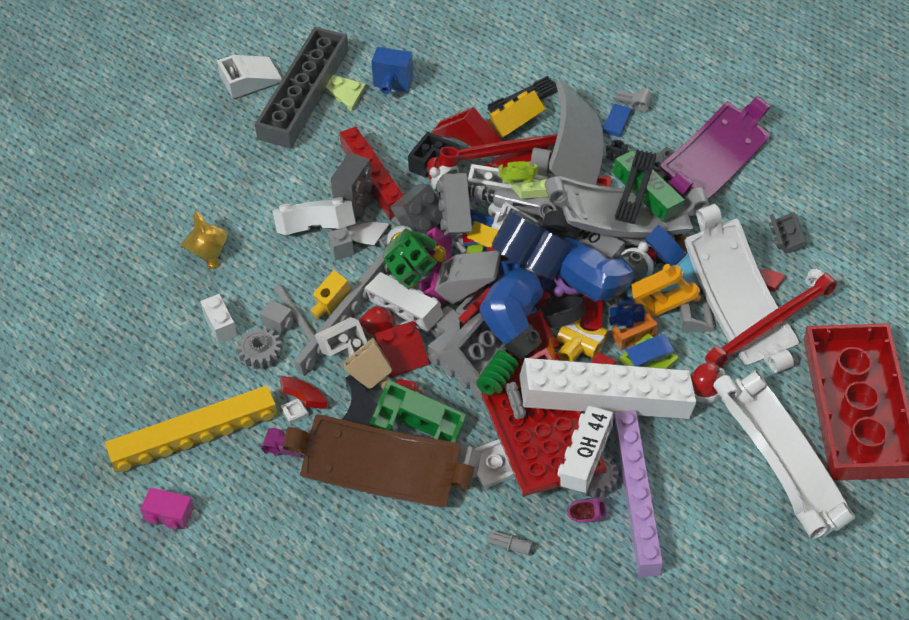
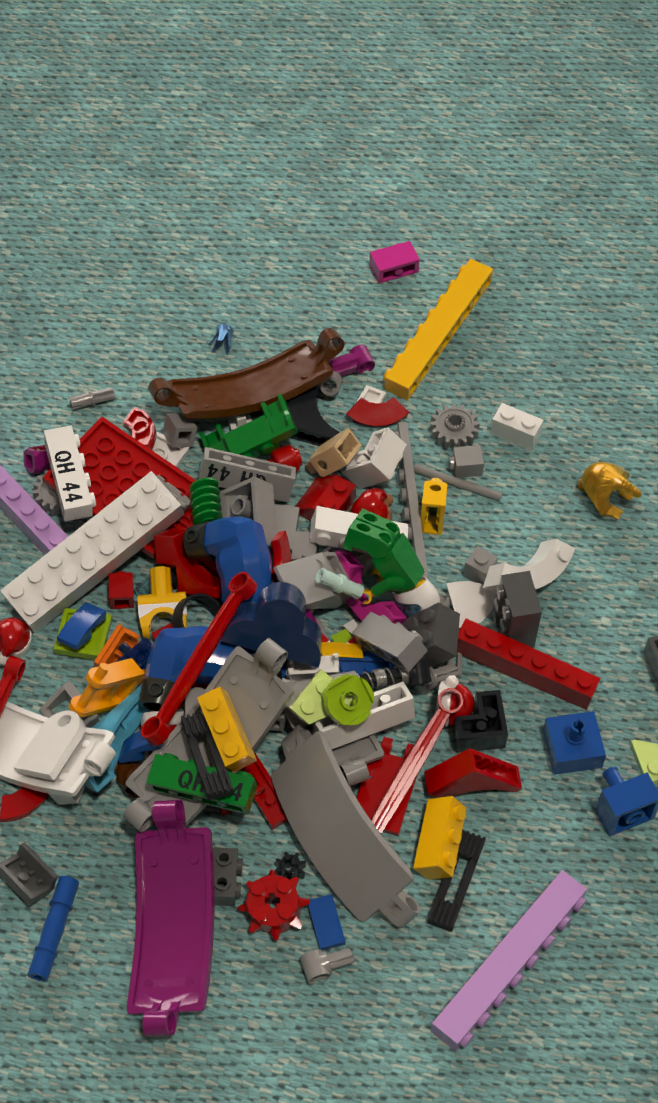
camera: 140 degrees right, 5 degrees up
(357, 531) = (223, 333): none -> flat silver piece
(387, 119) = (574, 742): none -> blue brick
(446, 388) = (235, 468): none -> light grey brick
(456, 252) = (339, 583): none -> light aqua pin
(490, 487) = (141, 427): none -> red tile
(528, 48) = (508, 961): none -> lavender brick
(594, 244) = (156, 728): none -> red piece
(611, 193) = (226, 729): none -> yellow brick
(644, 133) = (287, 909): none -> red brick
(728, 273) = (51, 746): none -> white tile
(788, 197) = (53, 928): none -> blue piece

